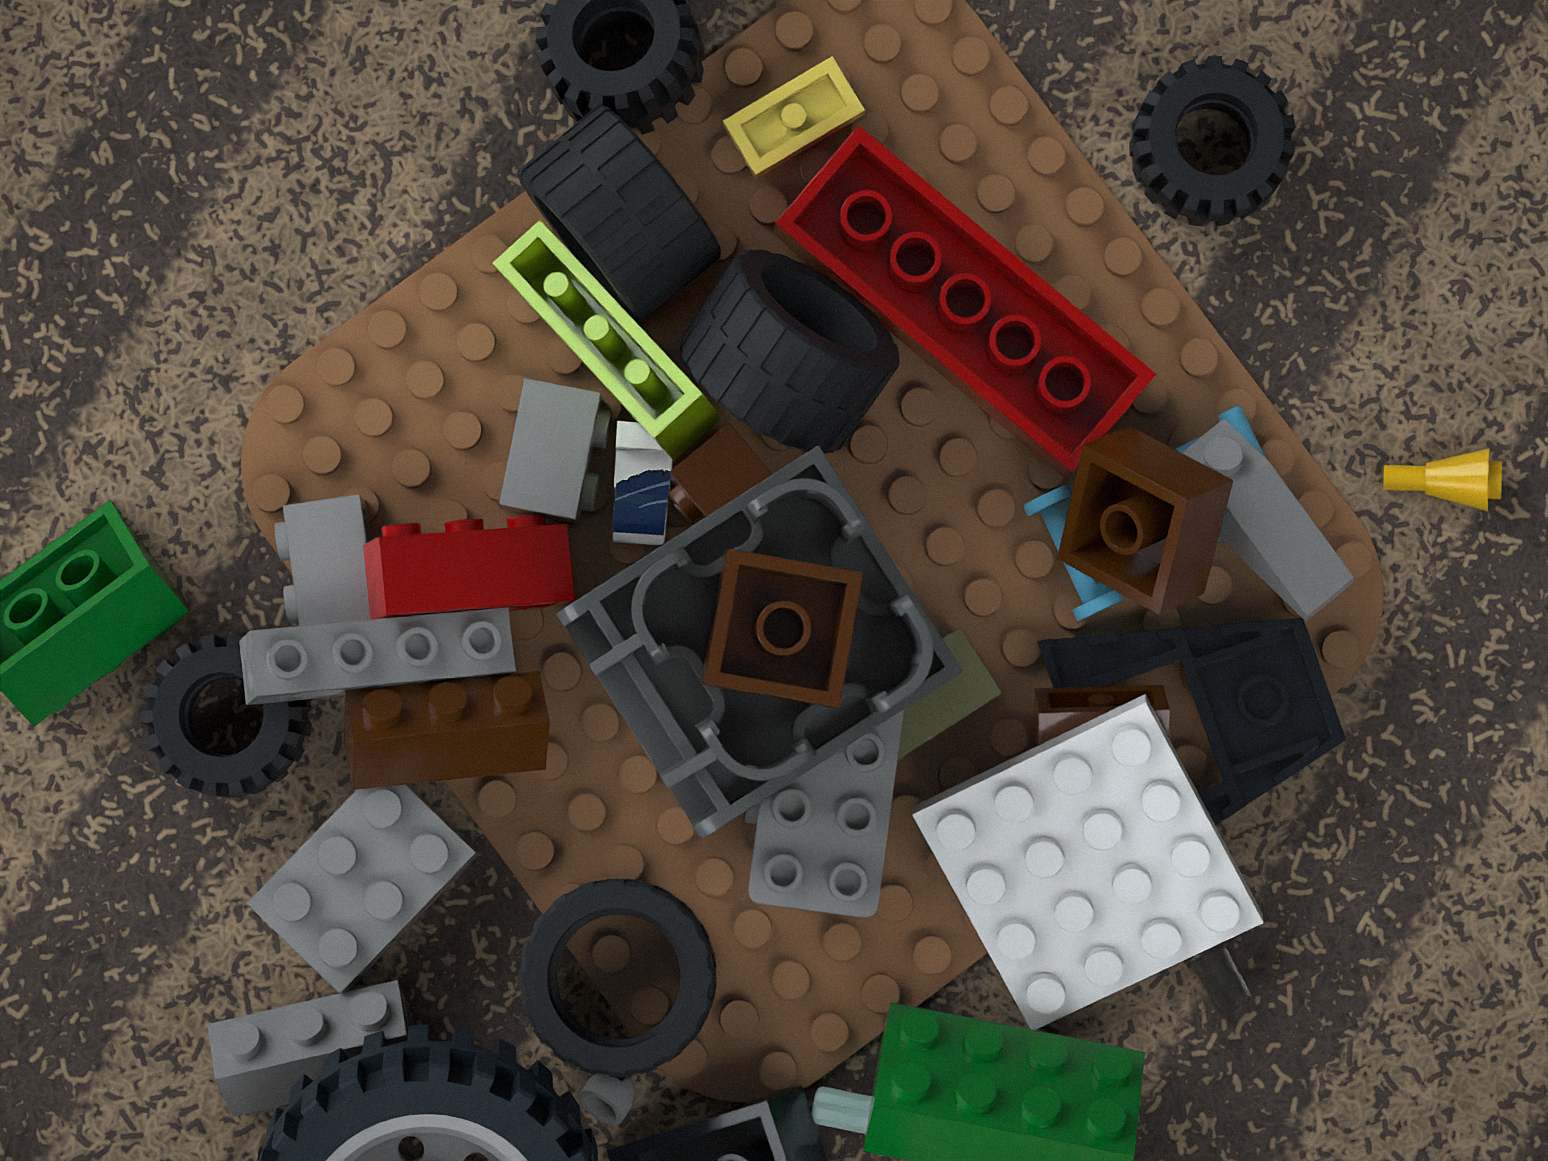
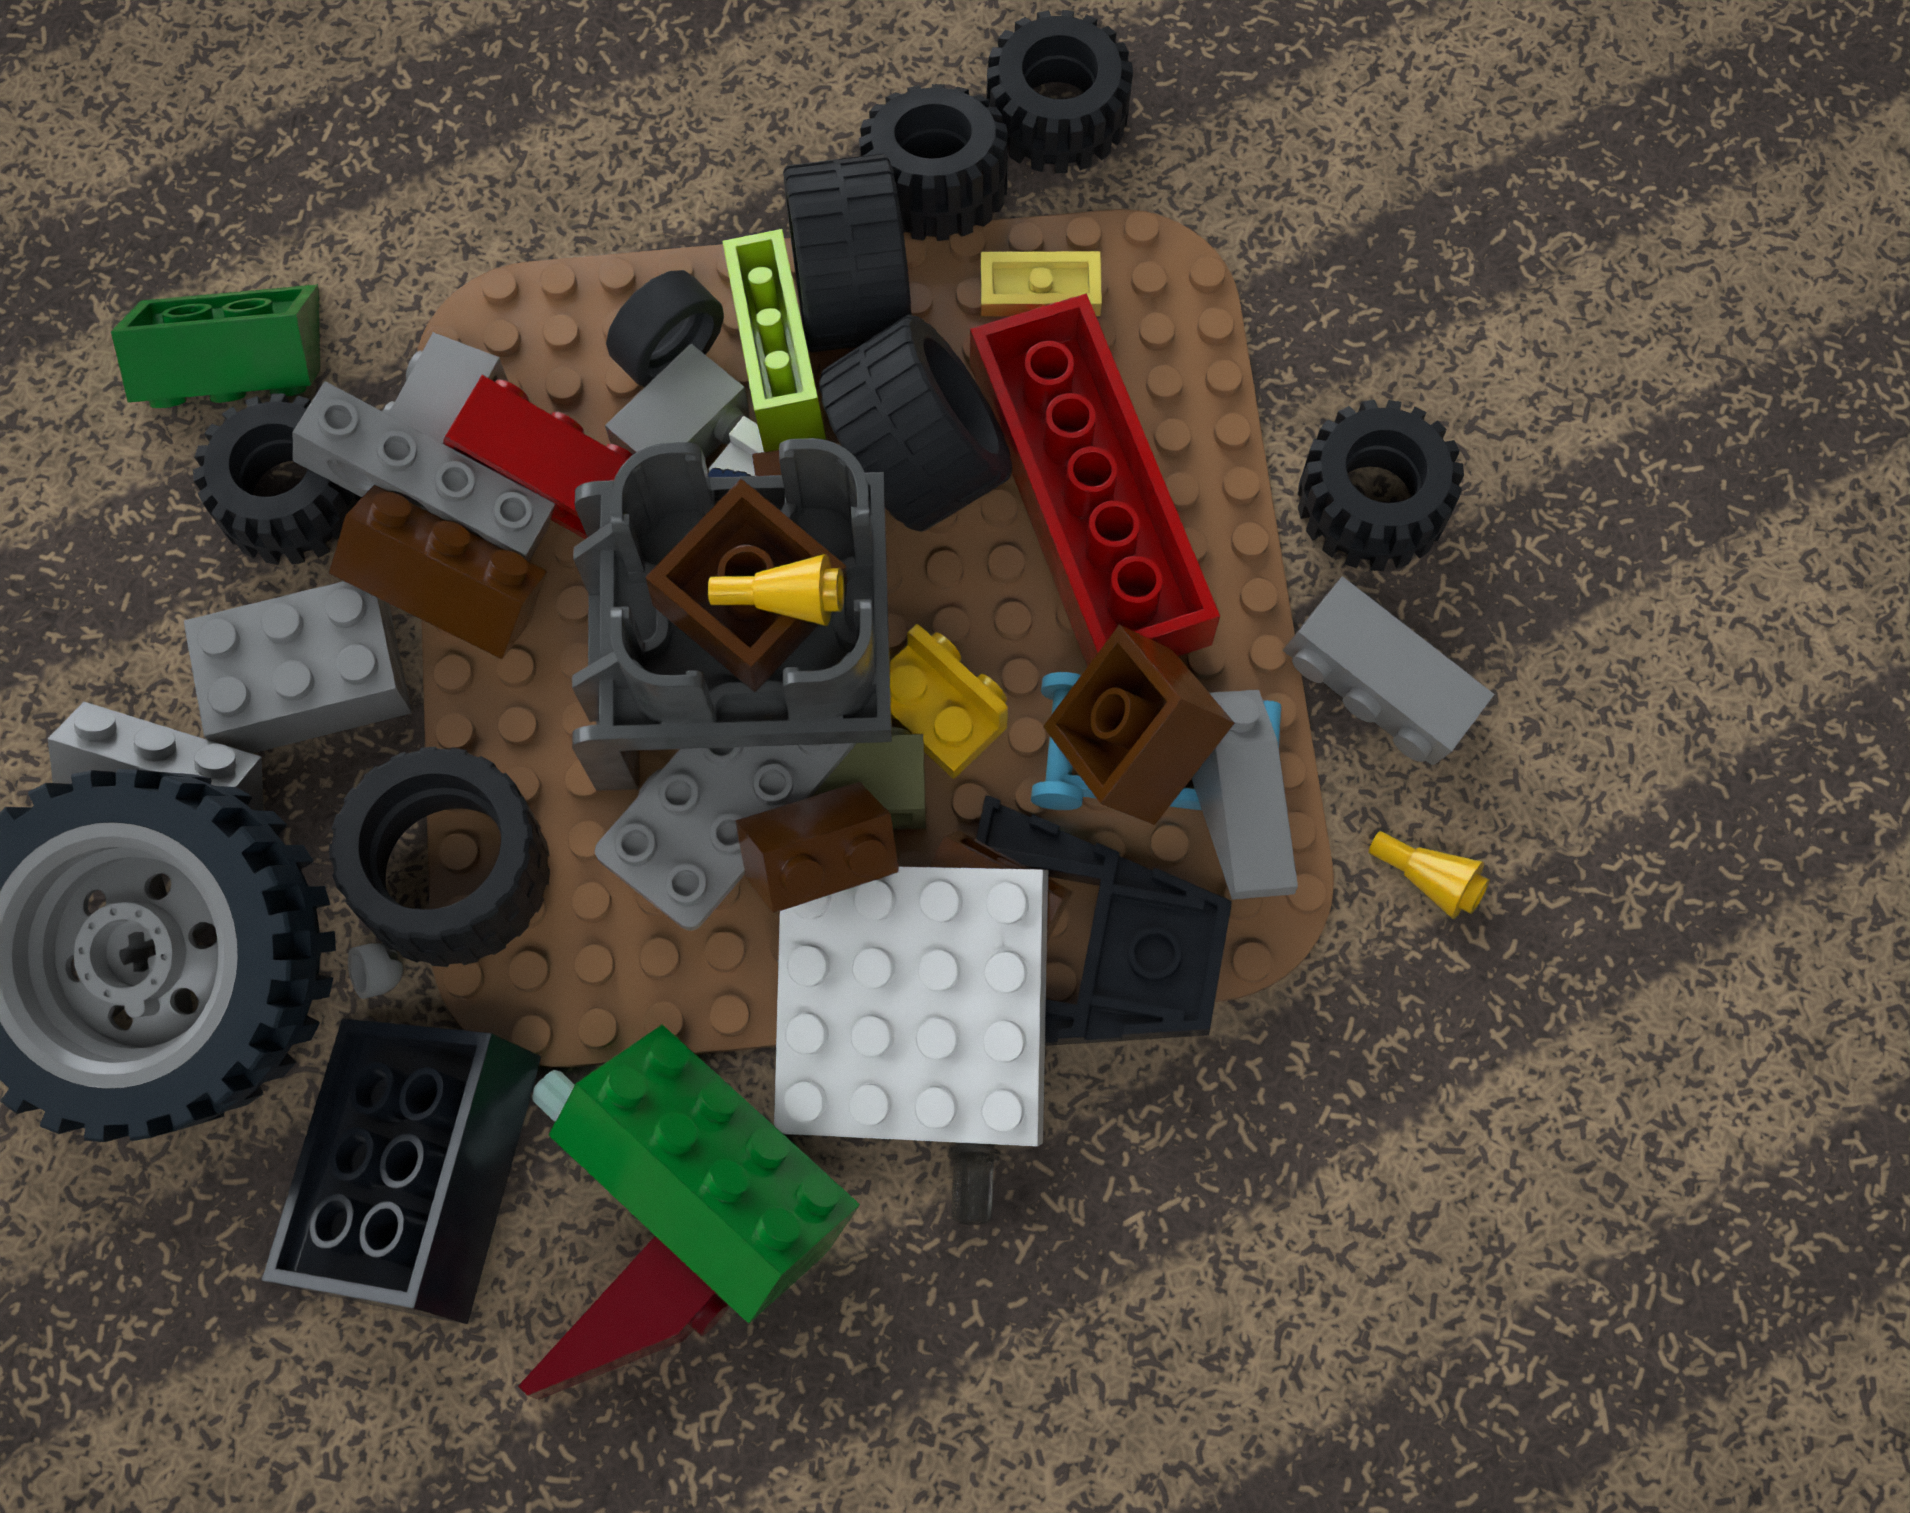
camera: 30 degrees right, 15 degrees down
(490, 376) = (662, 323): none -> black tyre
(843, 626) = (796, 590): none -> yellow cone
(941, 788) = (817, 846): none -> reddish brown brick
(954, 581) = (944, 701): none -> yellow bracket
(1315, 323) = (1387, 673): none -> light grey brick

